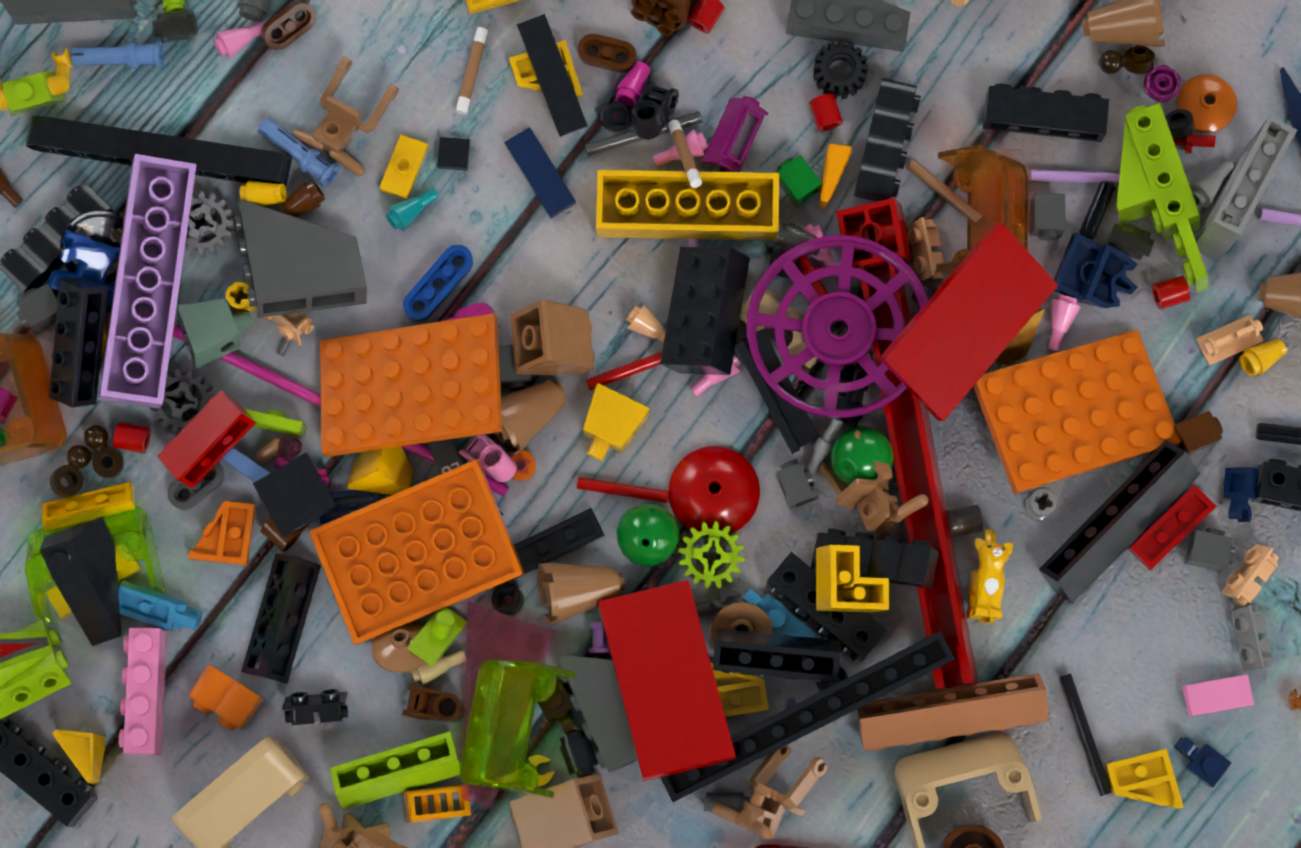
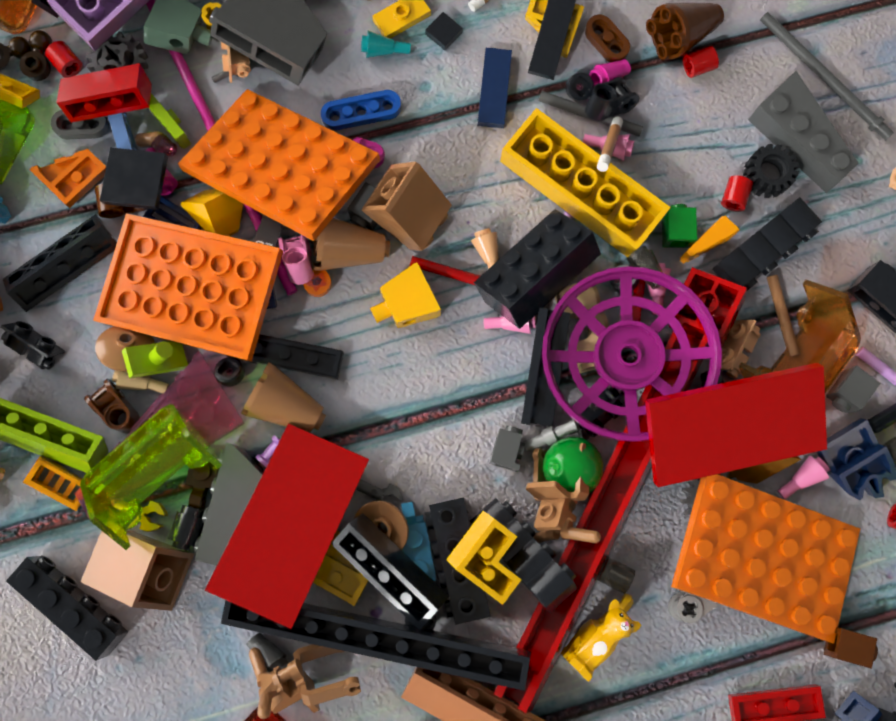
camera: 30 degrees right, 0 degrees up
(622, 489) = (377, 355): red bar -> none
(647, 534) = (366, 401): green piece -> none
(694, 502) = (438, 427): red dish -> none
(697, 553) = (393, 443): lime gear -> none
(735, 134) = (659, 158): magenta window -> none
(1119, 521) = (739, 670): black brick -> none

